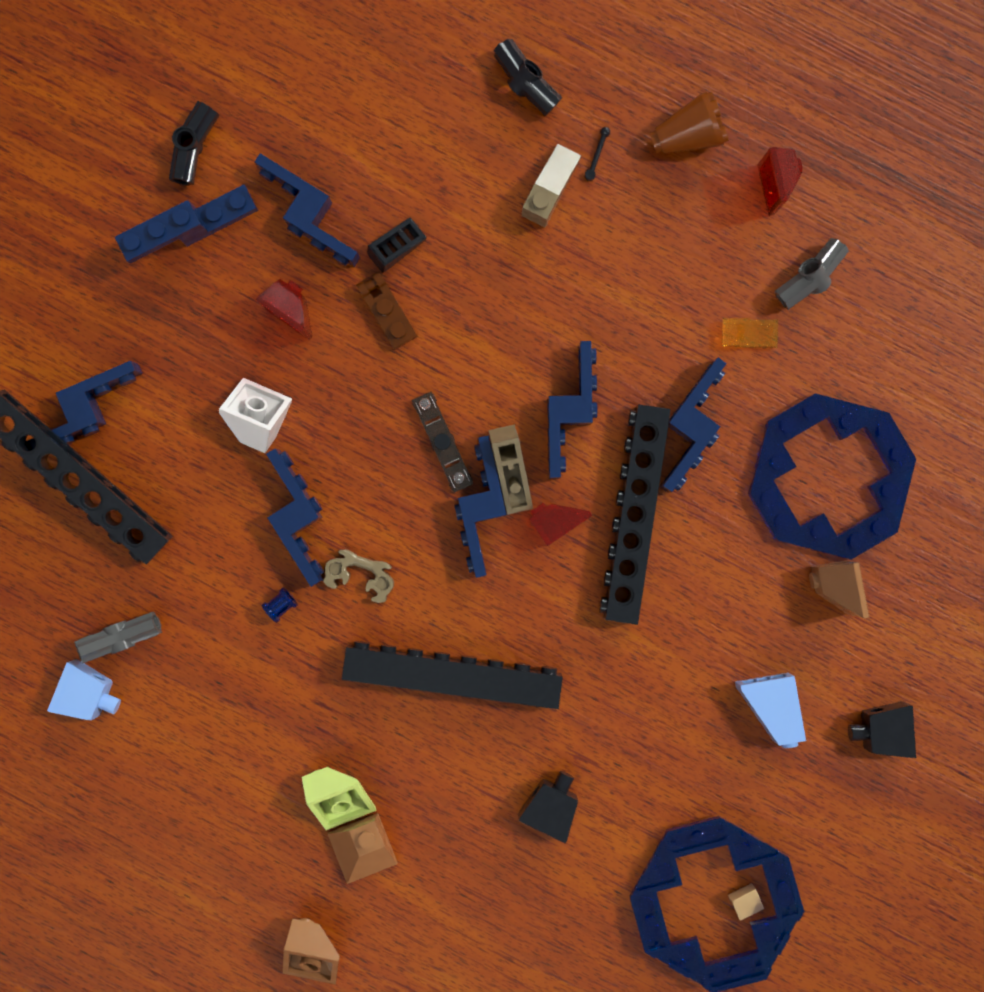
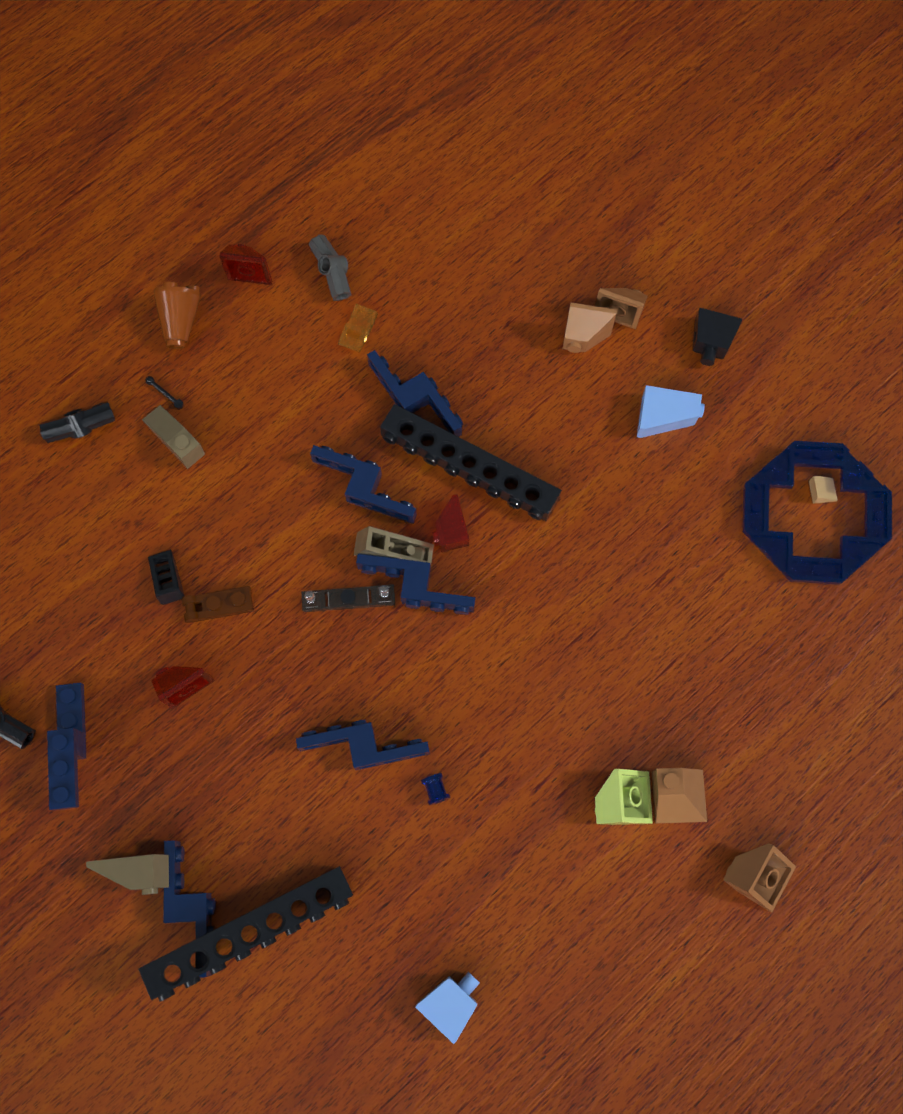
camera: 70 degrees left, 15 degrees down
(90, 345) = (135, 872): none -> dark tan slope
(118, 637) = (410, 952): dark grey piece -> none
(255, 414) = (259, 748): white slope -> none
(306, 211) = (103, 639): dark blue bracket -> none
(337, 569) = (450, 693): dark tan helmet -> none
(452, 676) = (551, 661): black brick -> none
(551, 807) = (693, 616): black torso -> none
(886, 619) = (627, 303): none -> medium nougat slope
(889, 491) = (468, 344): clear blue plate -> none

